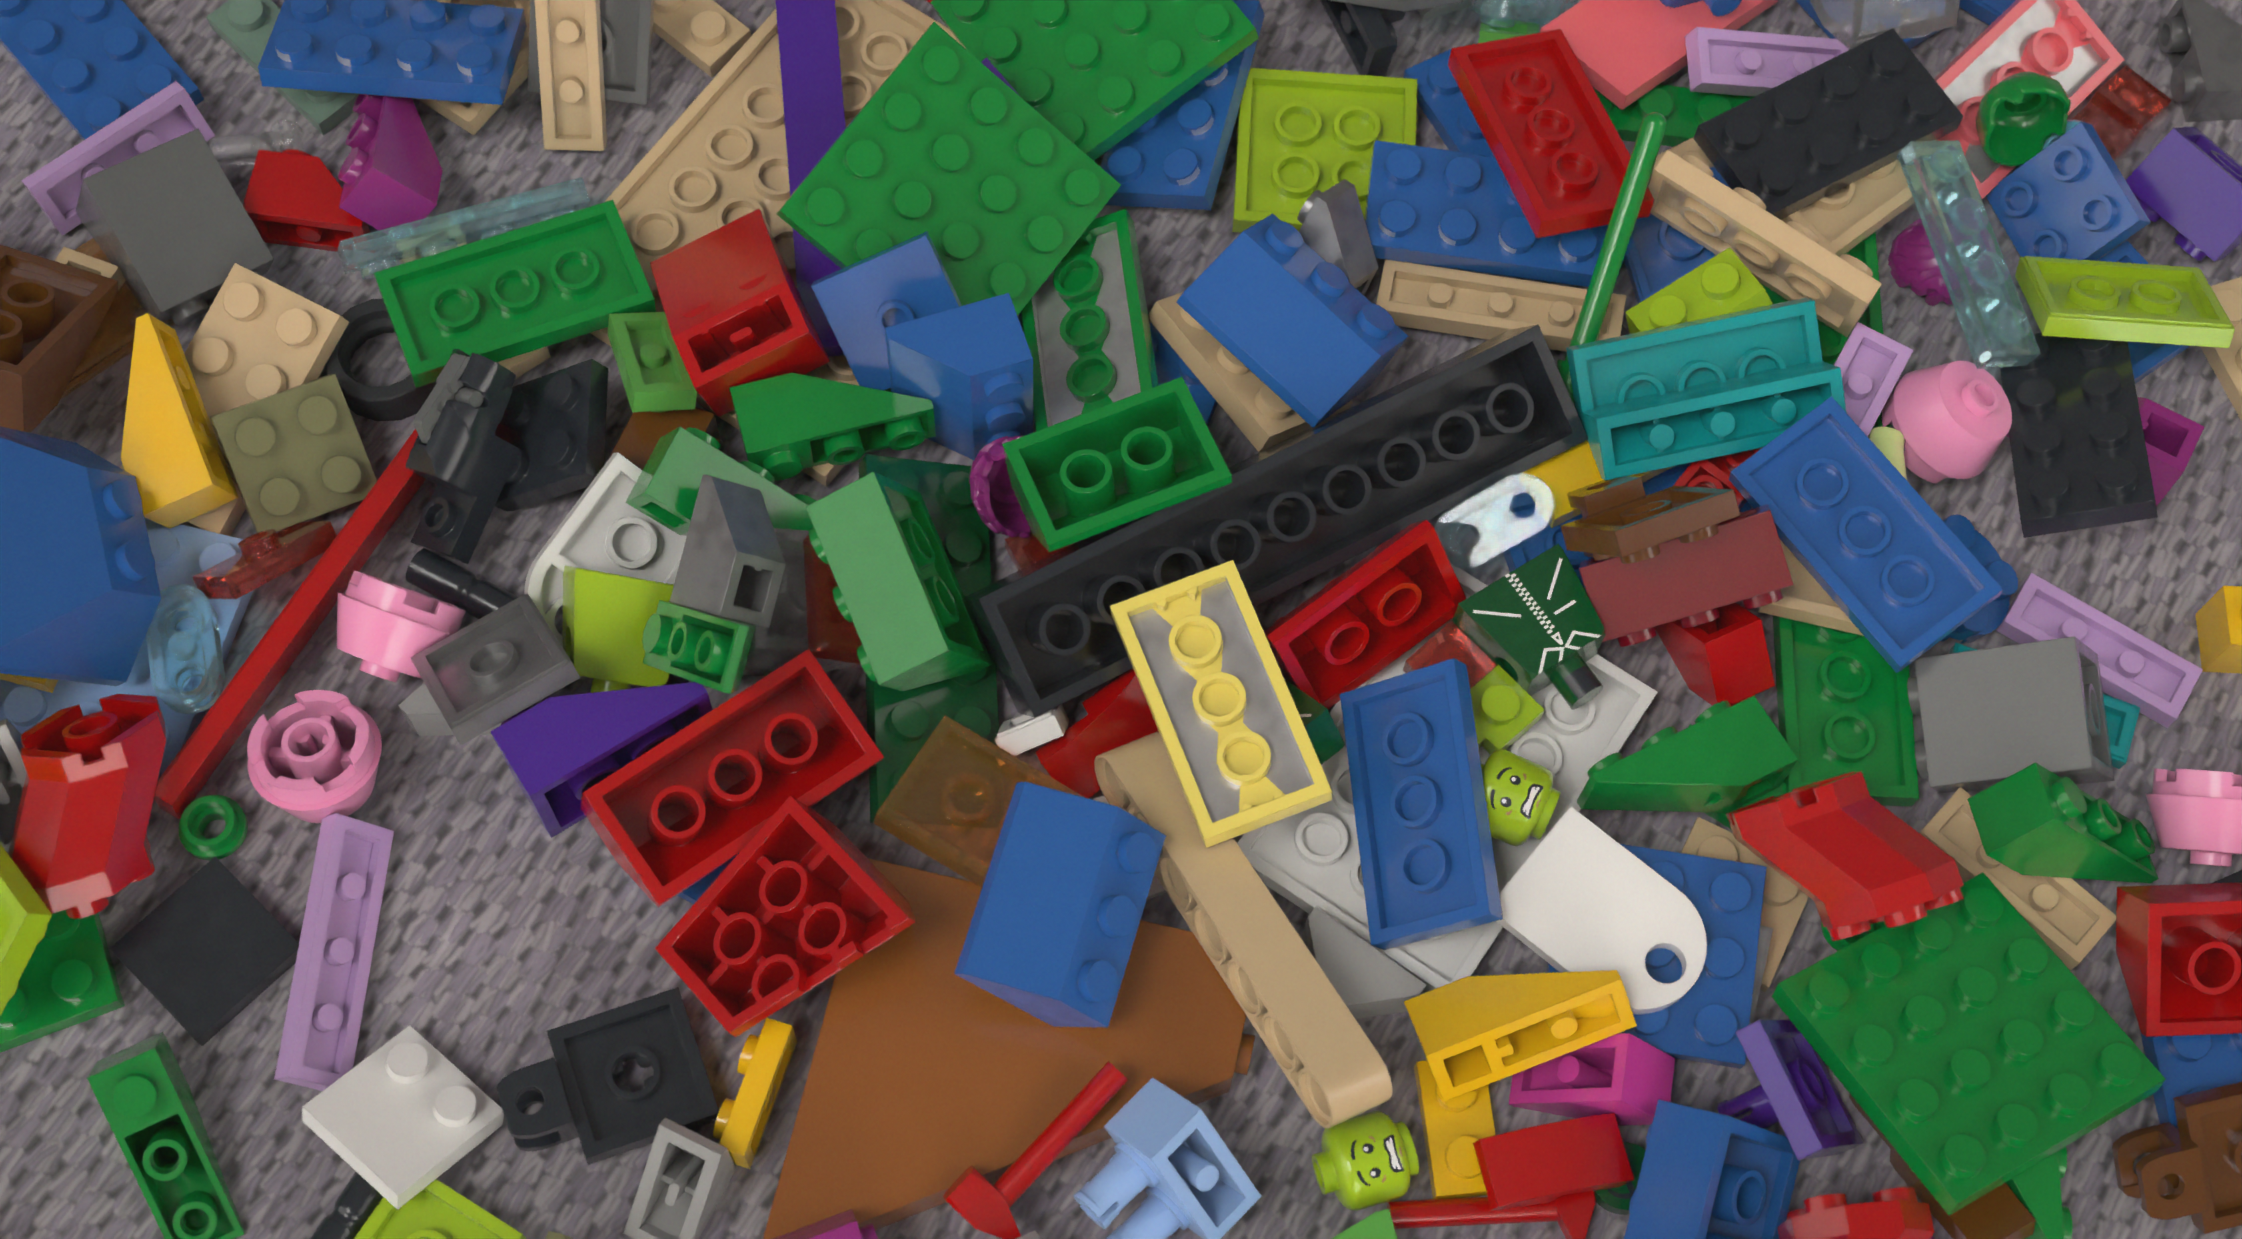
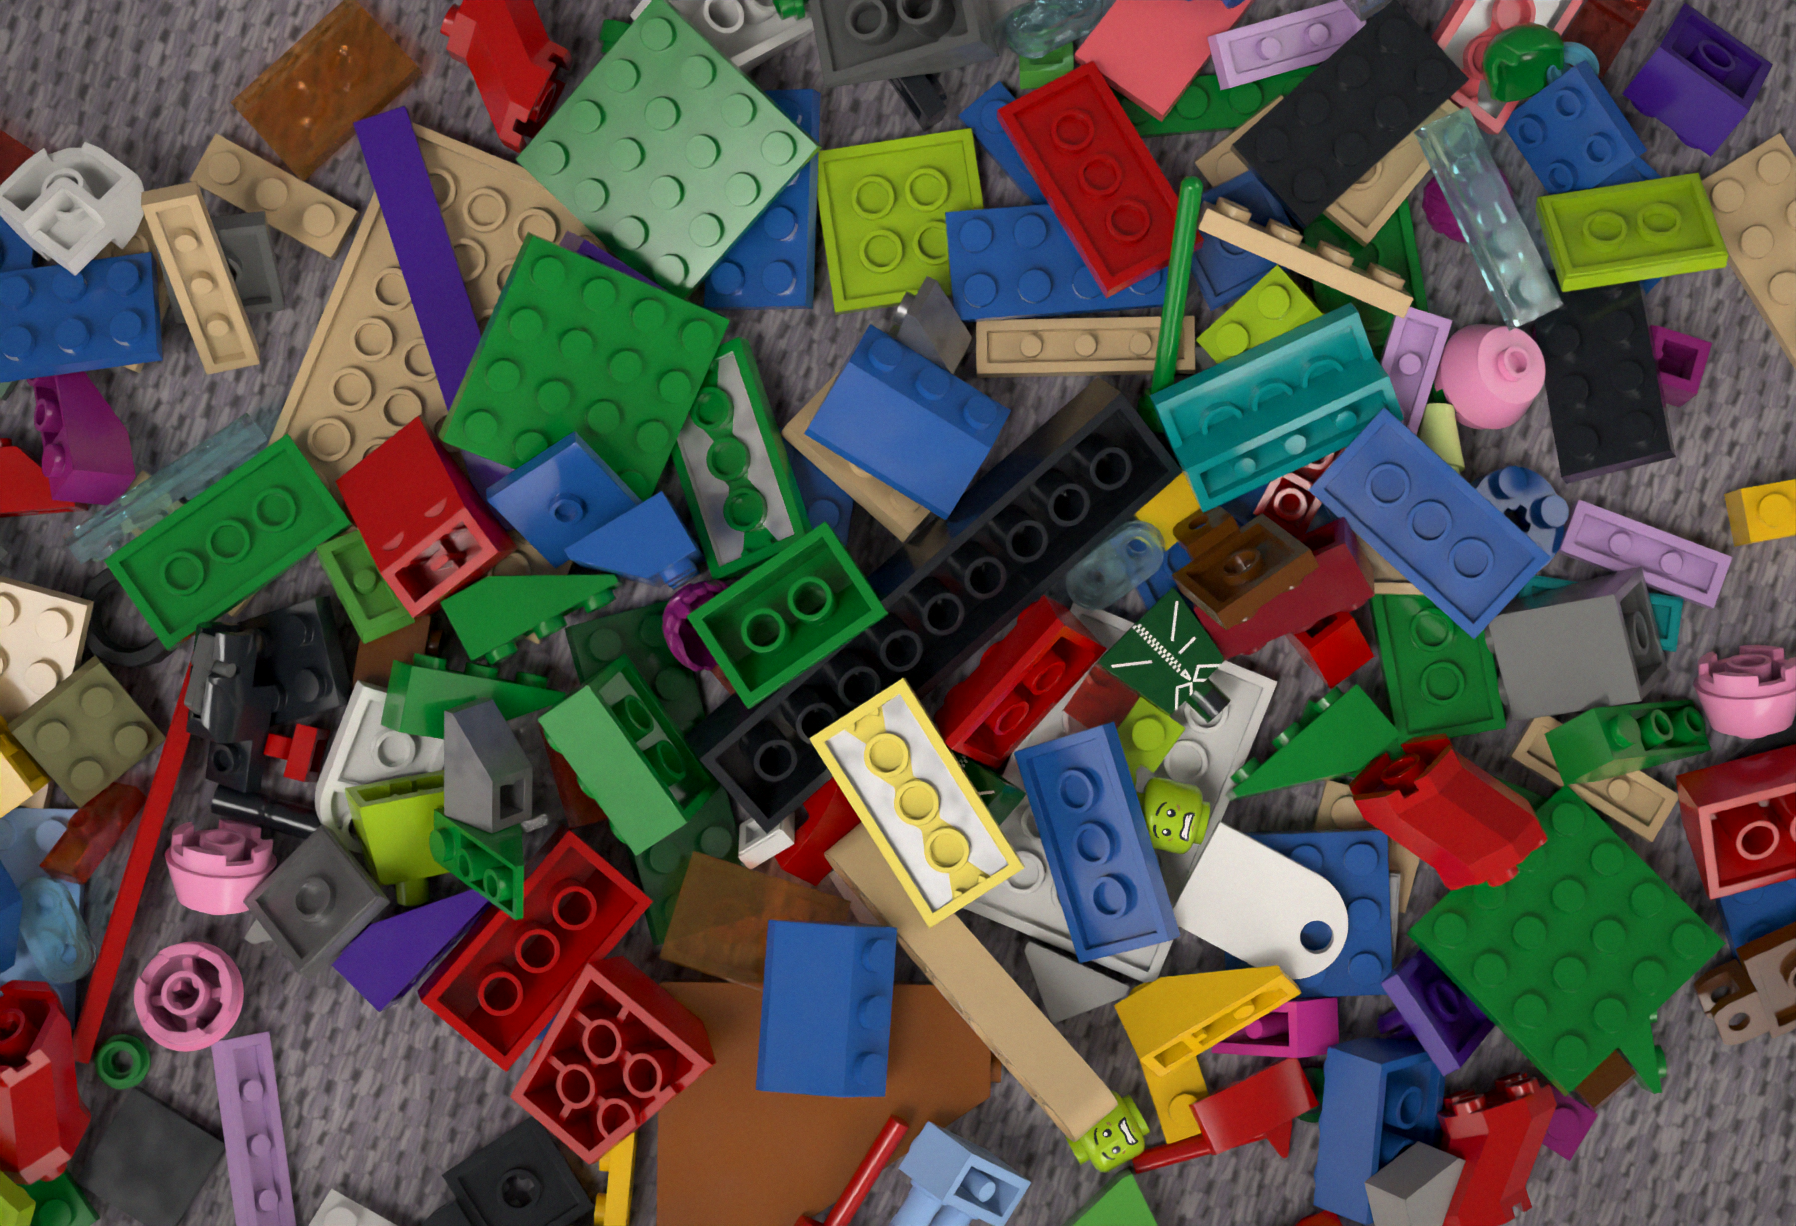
camera: 10 degrees left, 20 degrees up
(525, 530) = (302, 751): none -> red tile

